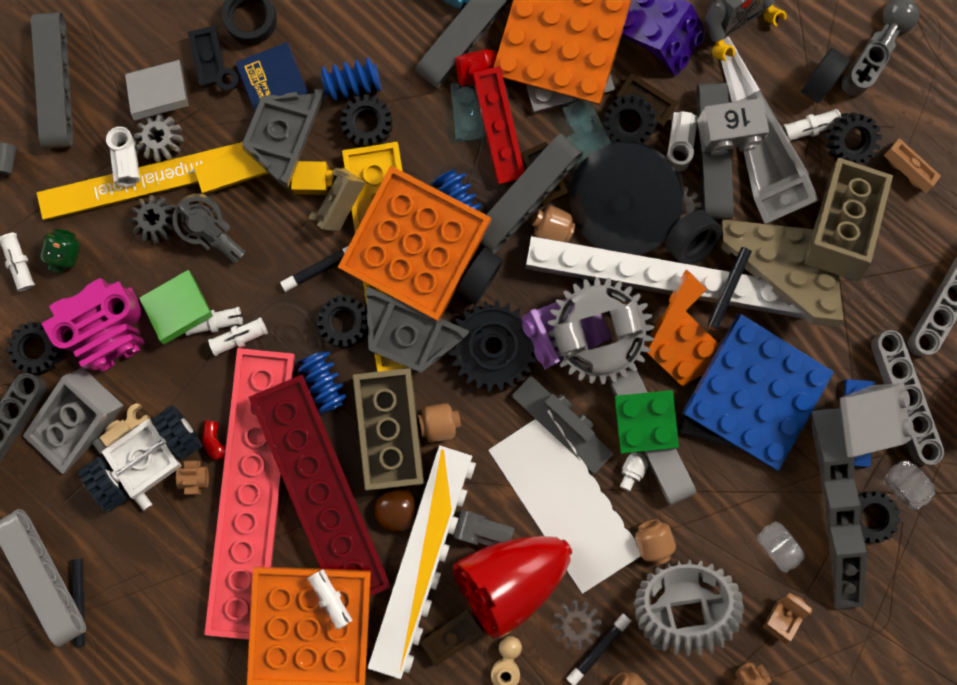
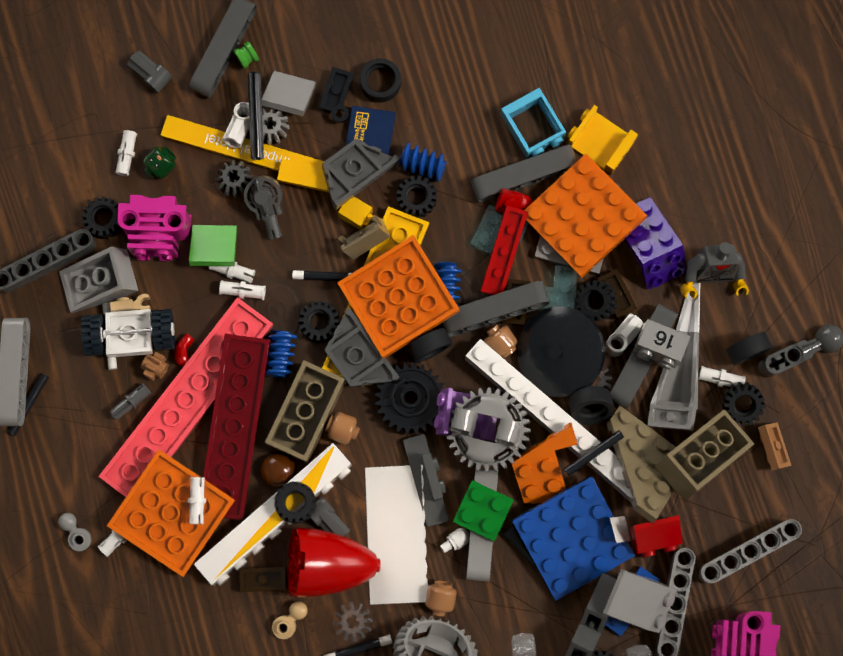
camera: 30 degrees right, 5 degrees down
(83, 74) = (246, 55): none -> bright green wheel
(135, 135) = (255, 116): none -> black axle
(189, 531) = (130, 401): none -> dark grey axle
(438, 554) = (284, 492): none -> black tyre
(804, 353) = (620, 529): none -> white sticker
(838, 344) = (658, 535): none -> red slope

